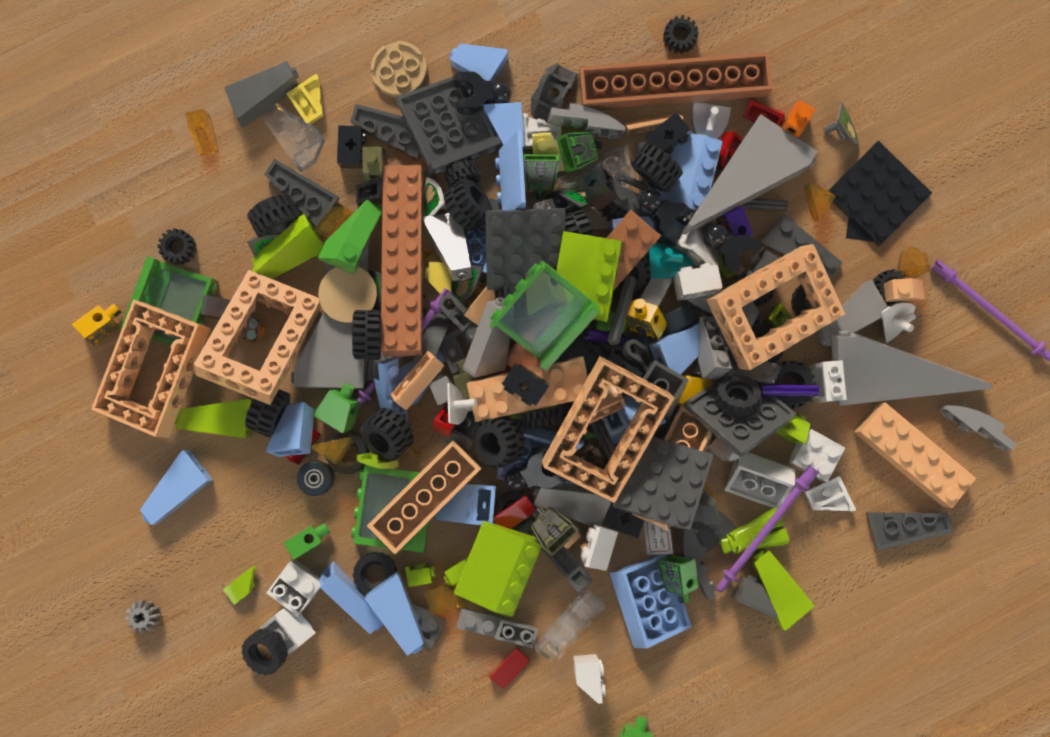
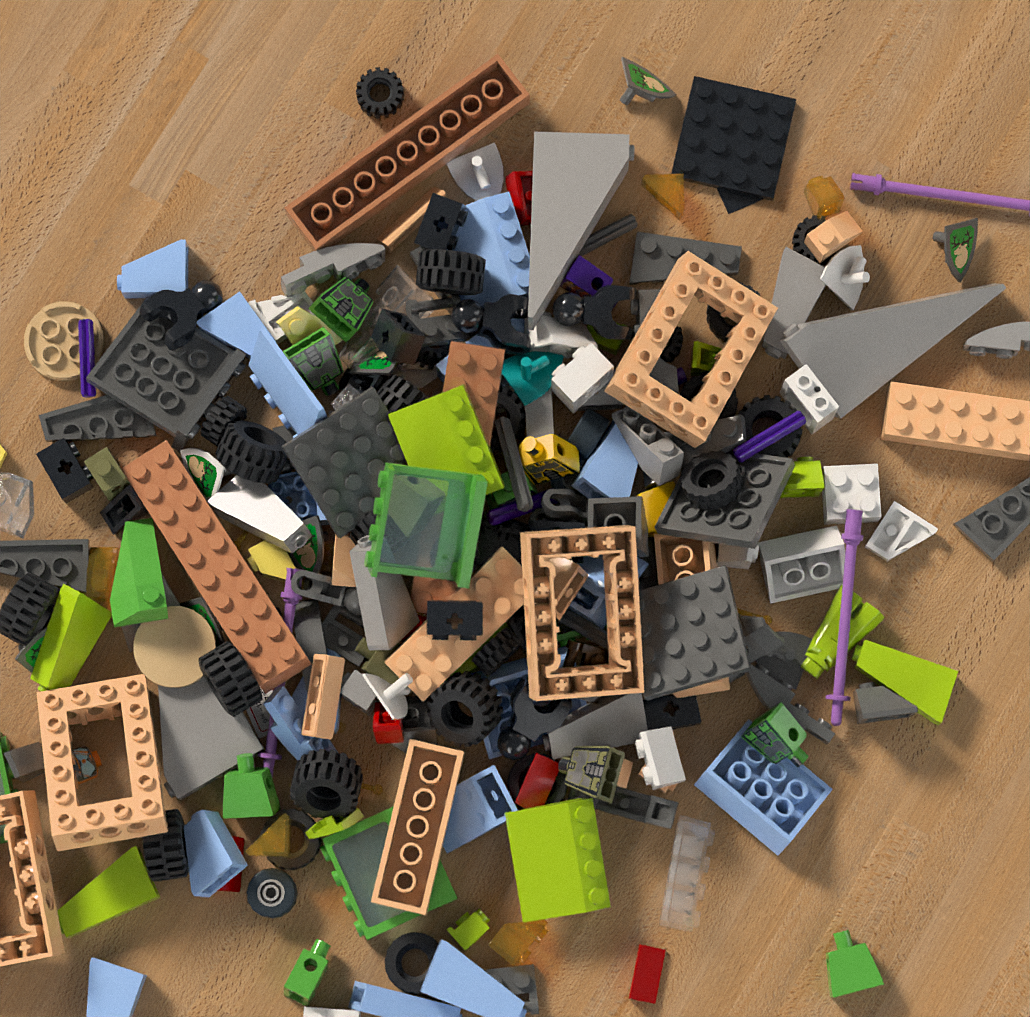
camera: 25 degrees left, 5 degrees down
(406, 84) = (87, 355): none -> dark purple axle
(454, 572) = (510, 901): lime brick -> none
(497, 626) = (601, 933): light grey slope -> none
(554, 77) = (262, 235): dark grey piece -> none
(587, 675) = (744, 920): white slope -> none
(657, 540) = (726, 709): white sticker -> none
(756, 108) = (526, 124): red slope -> none
(798, 118) = (582, 110): orange torso -> none
(976, 344) = (959, 246): none -> shield

